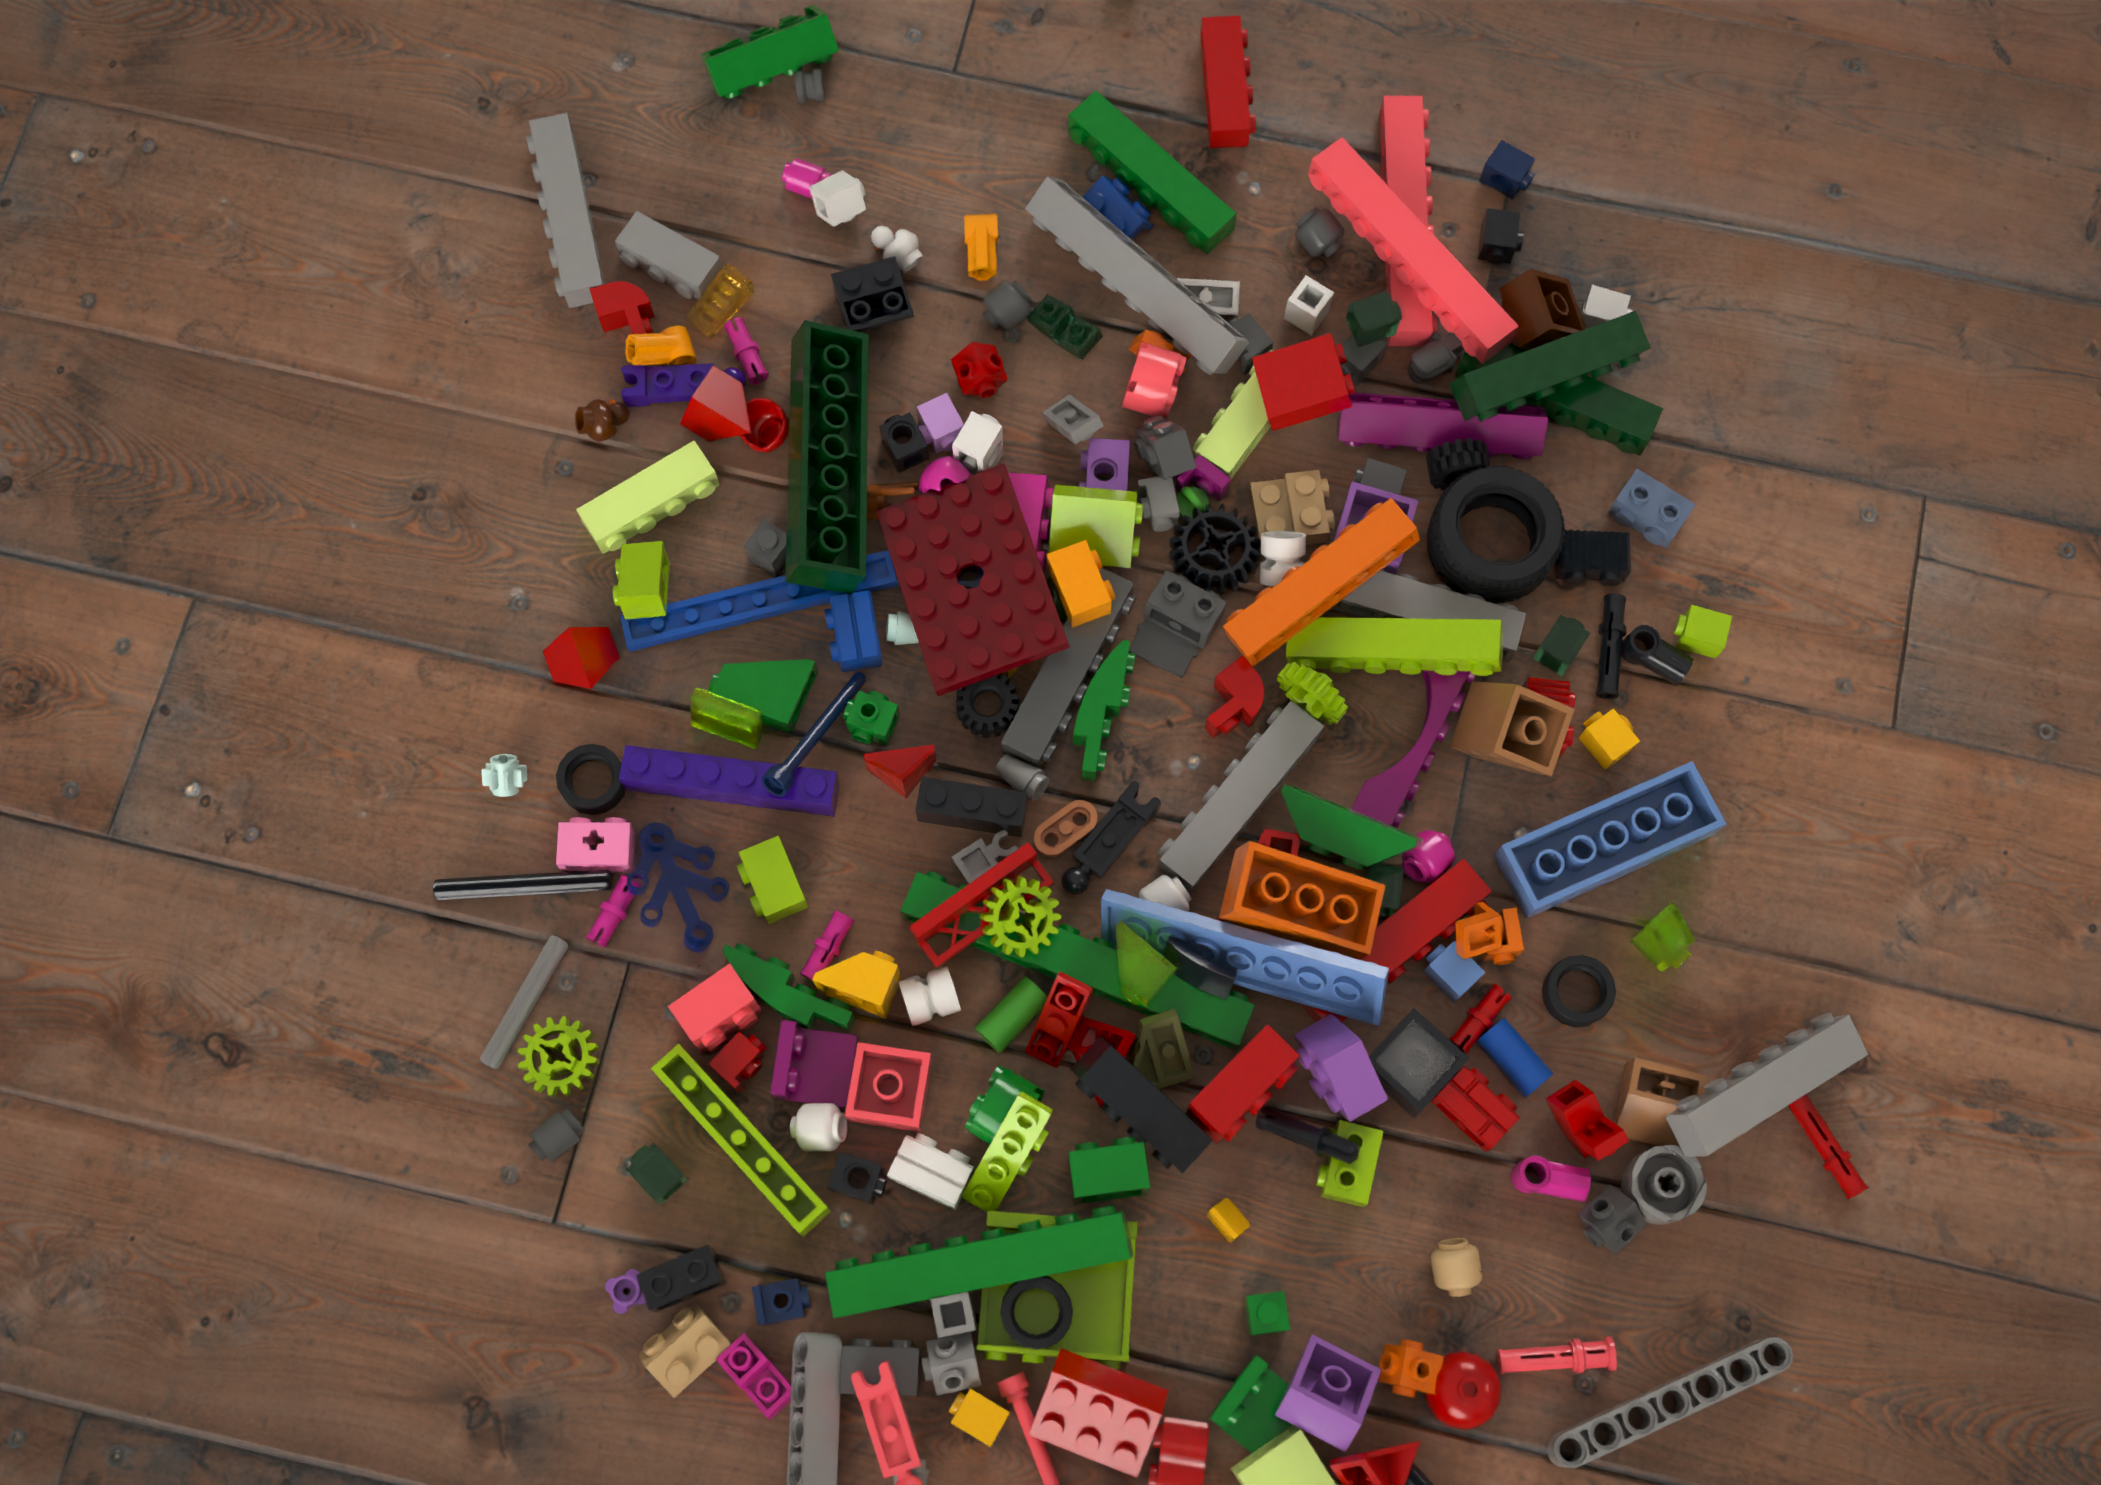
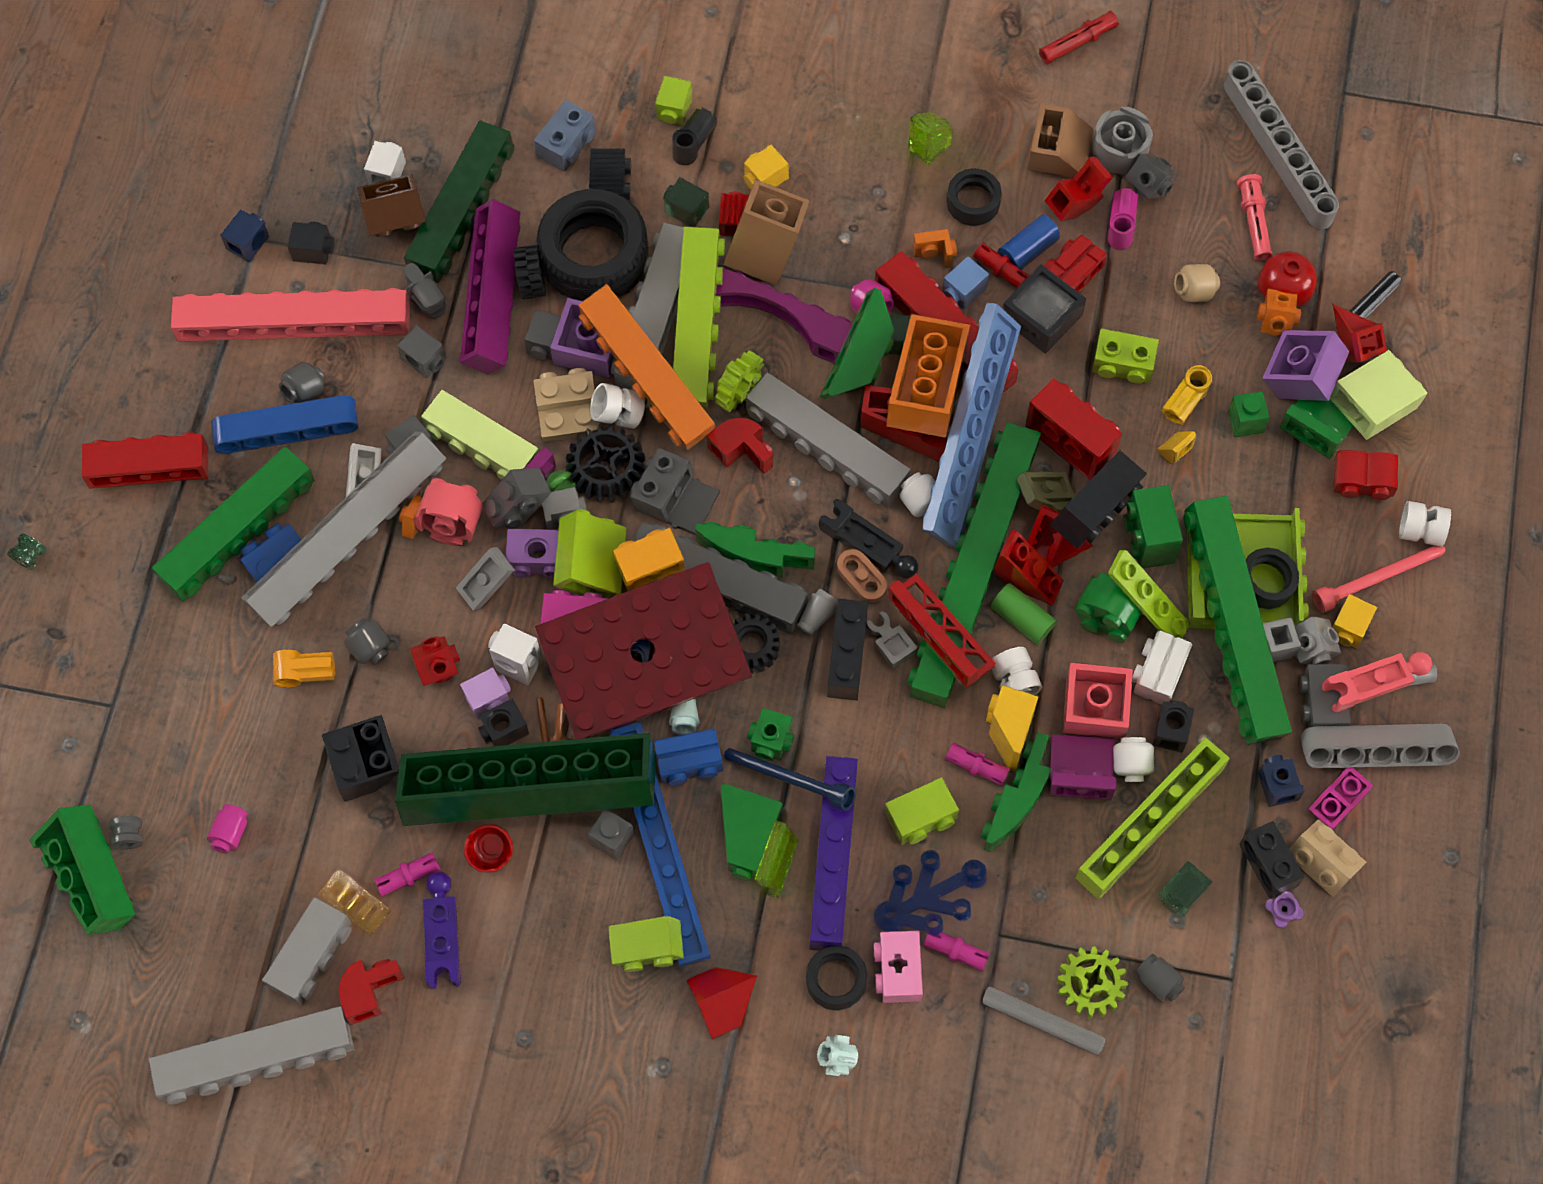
camera: 90 degrees left, 5 degrees down
(522, 884) = (937, 1034): black axle -> none
(598, 419) = (478, 1002): reddish brown animal -> none
(648, 497) = (560, 950): yellowish green brick -> none
(668, 347) = (406, 945): light orange piece -> none
(716, 1010) = (1044, 843): coral brick -> none
(717, 408) = (471, 888): red slope -> none
(739, 1060) = (1082, 828): red brick -> none
(838, 198) = (252, 795): white brick -> none
(901, 767) = (817, 707): red slope -> none
(903, 247) = (308, 741): white animal -> none
(942, 472) = (541, 685): dark pink hair -> none
(1006, 920) = (951, 593): lime gear -> none
(1065, 329) = (388, 595): clear green slope -> none
(1099, 1412) = (1341, 527): brick -> none
(1140, 967) = (986, 503): clear neon green slope -> none
(1198, 971) = (981, 464): black slope -> none
(1270, 218) = (284, 424): none -> blue beam
(1291, 1236) = (1187, 395): none -> yellow piece
(1303, 381) = (460, 381): red brick -> none
(1308, 305) = (376, 388): white brick -> none
(1319, 1140) = (1111, 376): black axle -> none
(1339, 1068) = (1056, 353): medium lavender brick -> none
(1373, 318) = (398, 330): clear green brick -> none
(1412, 251) = (330, 301): coral brick -> none
(1479, 932) = (937, 257): orange bracket -> none
(1550, 366) = (449, 194): dark green brick -> none
(1609, 839) = (853, 170): medium blue brick -> none
(1611, 644) = (651, 166): black pin -> none
(1766, 1085) = (1045, 65): light grey brick -> none

